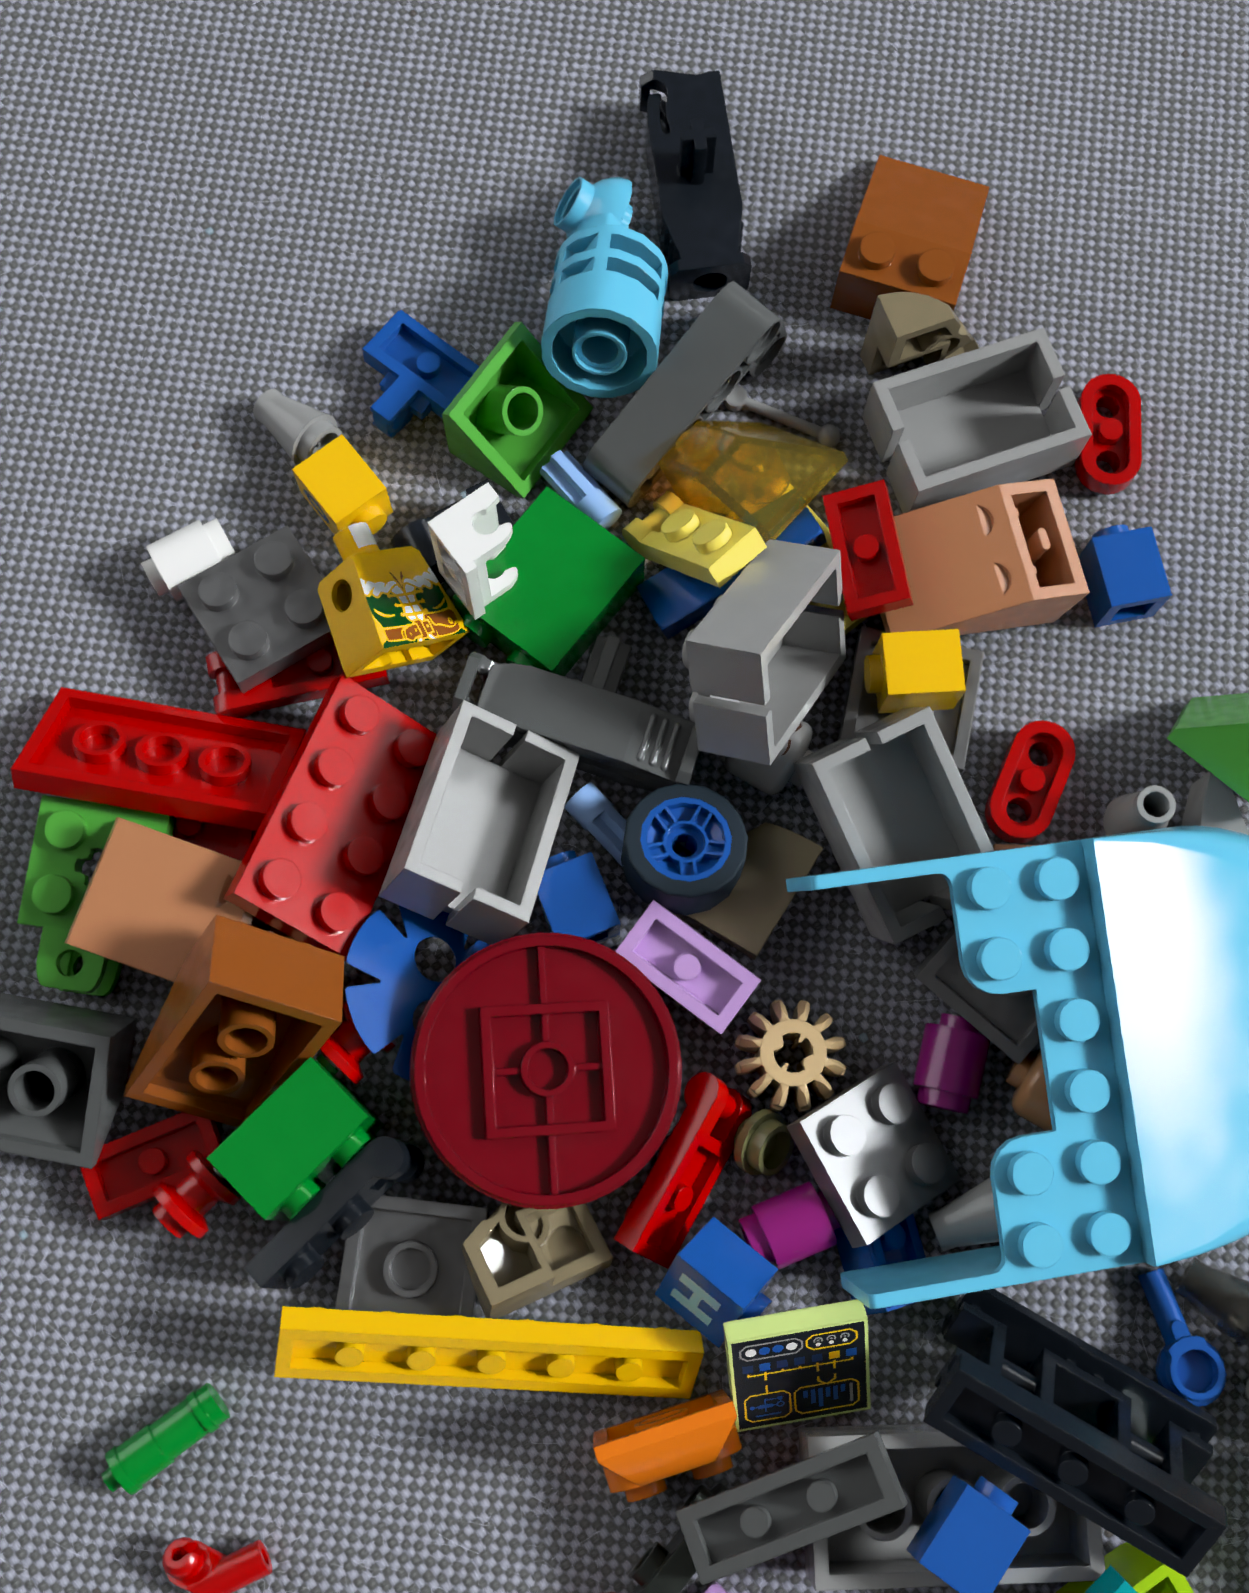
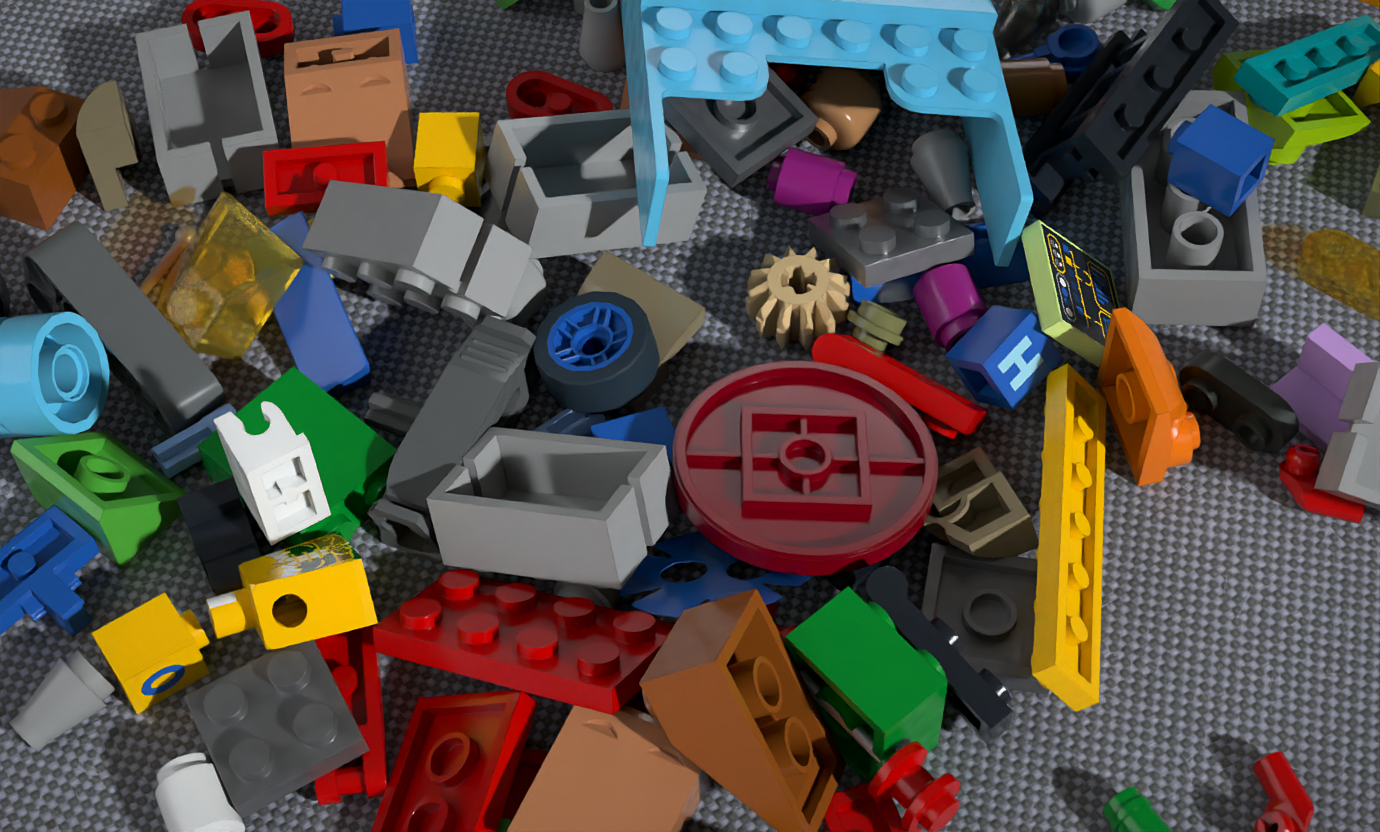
camera: 80 degrees left, 20 degrees down
(688, 967) = (718, 343): lavender panel -> none
(694, 540) = (284, 318): light yellow plate -> none
(791, 1507) = (1200, 284): dark grey plate -> none
(1122, 1310) = (1033, 86): none -> dark orange brick

